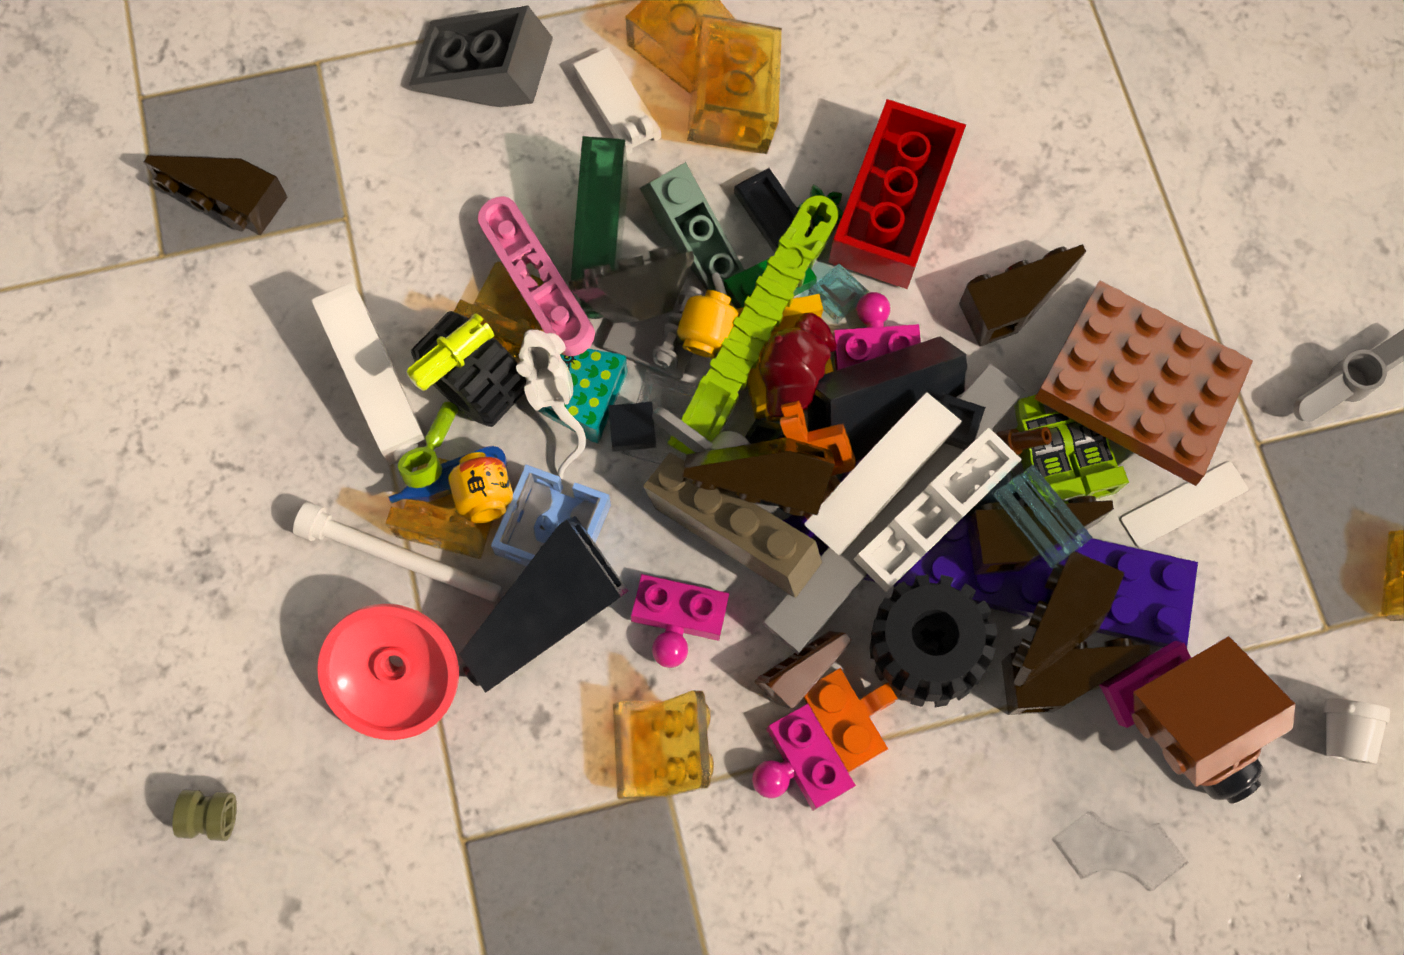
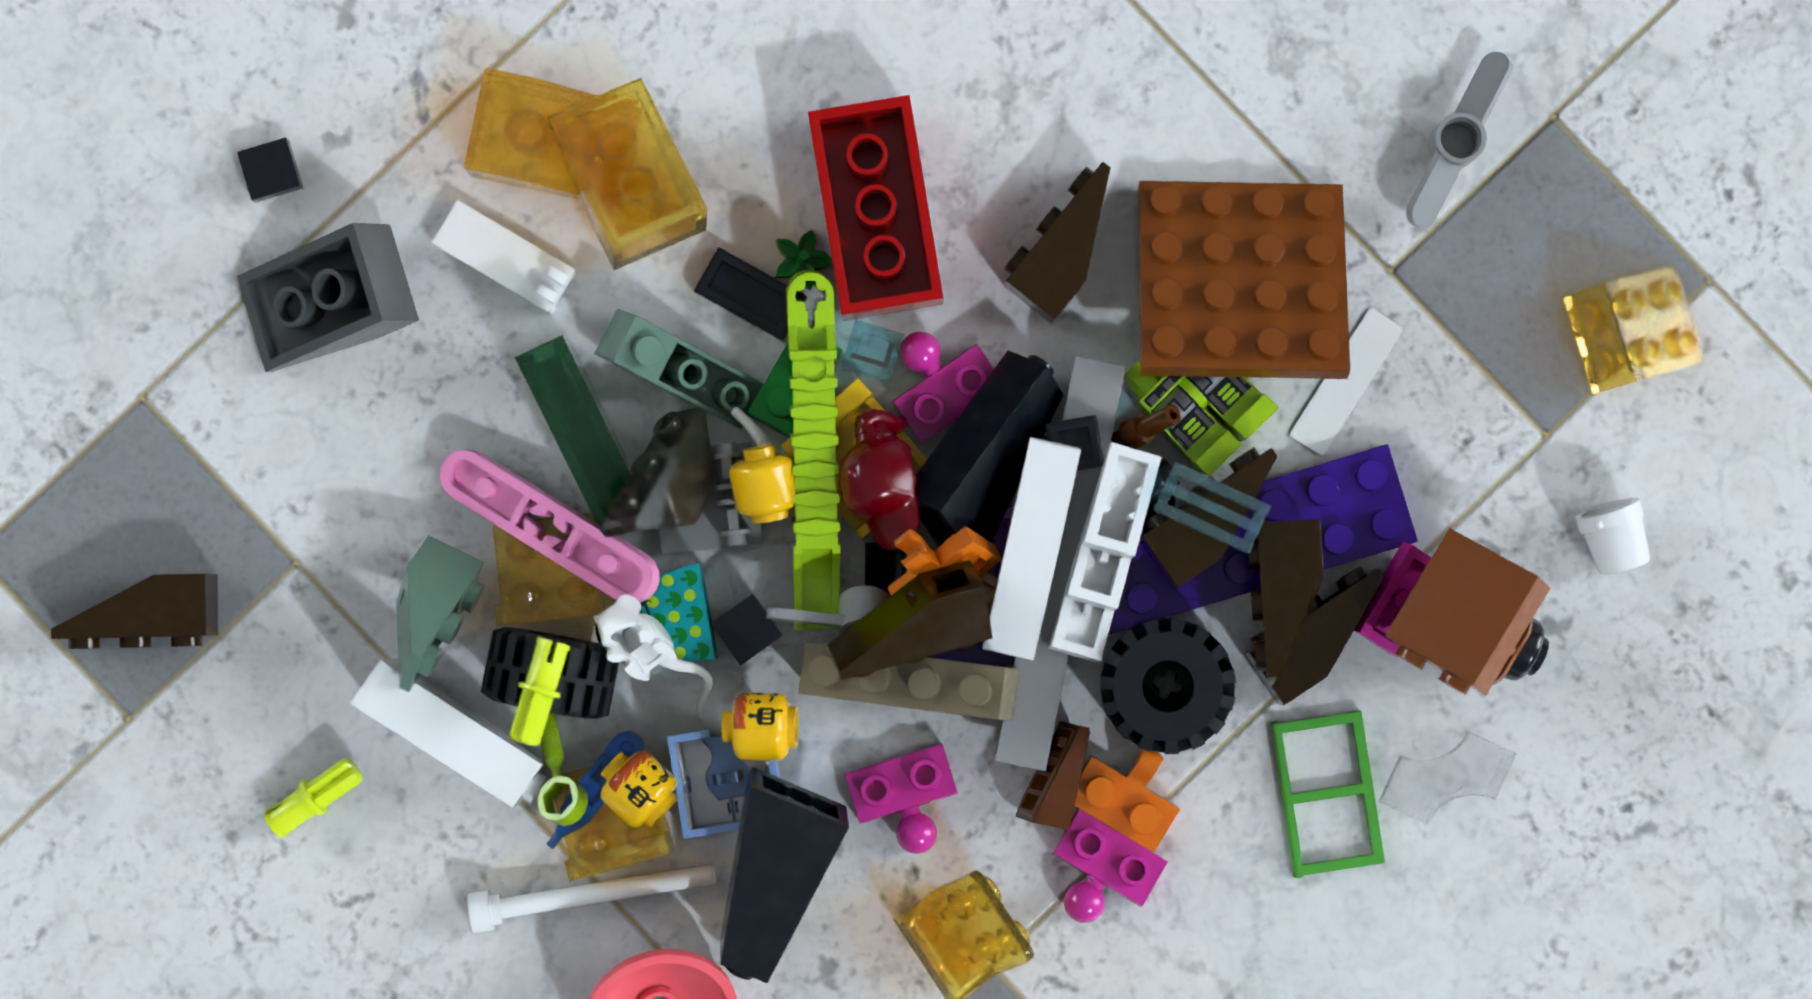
camera: 30 degrees left, 15 degrees up
(246, 373) = (313, 797): none -> neon yellow axle
(418, 278) = (430, 605): none -> sand green slope
(600, 488) = (761, 726): none -> yellow head
(1046, 820) = (1365, 788): none -> bright green window

